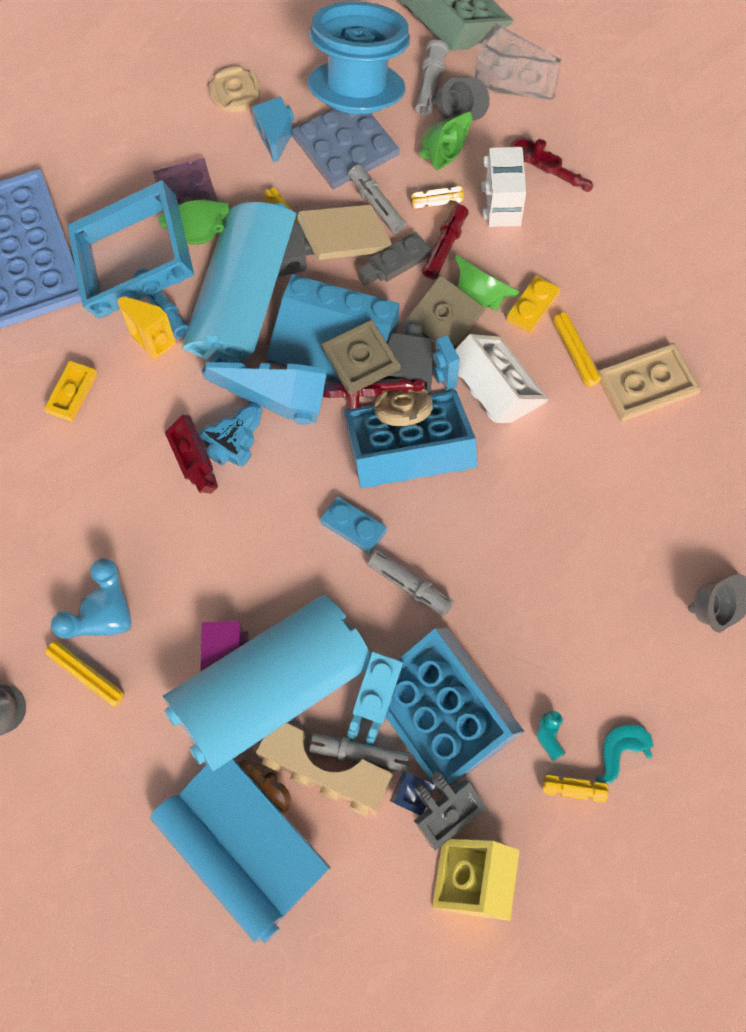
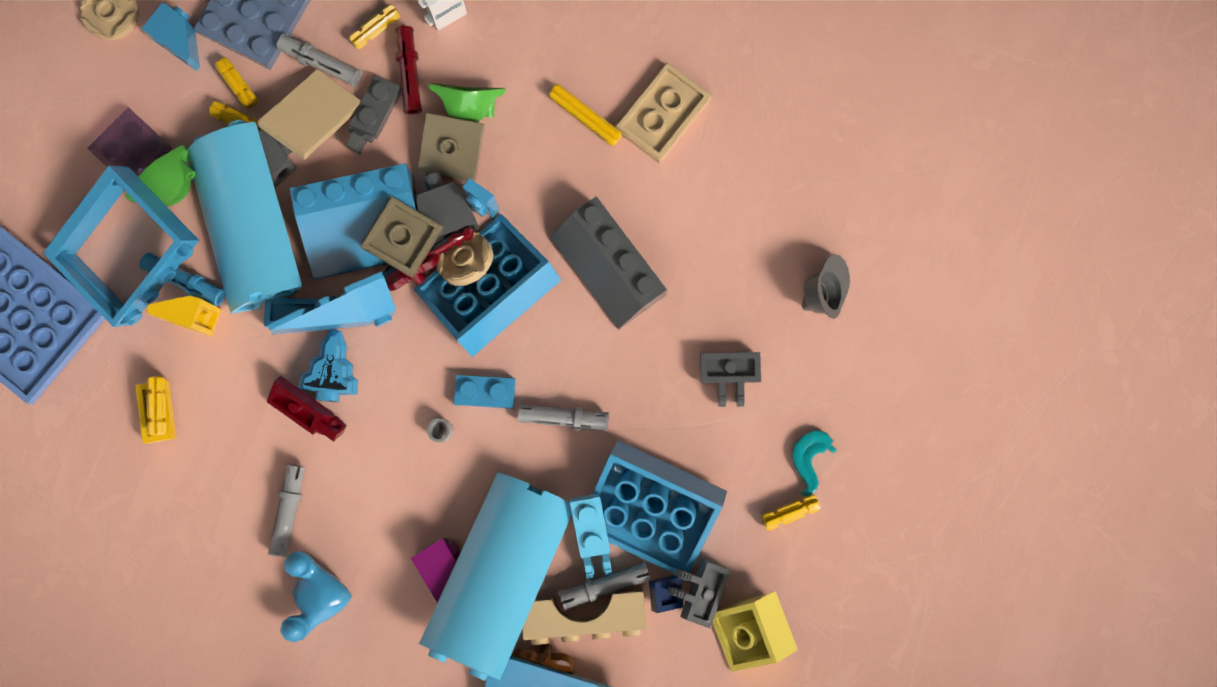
camera: 30 degrees left, 15 degrees up
(74, 383) = (156, 406): none -> yellow axle
(84, 673) = (336, 654): yellow axle -> none
(124, 526) = (286, 510): none -> light grey pin
(291, 532) = (435, 430): none -> light grey hinge
(299, 184) = (236, 82): none -> yellow axle
(498, 378) = (532, 183): white slope -> none
(528, 476) = (608, 263): none -> dark grey slope
(533, 304) = (522, 90): yellow plate -> none
(548, 732) = (745, 480): teal arm -> none
(589, 625) = (730, 368): none -> dark grey hinge

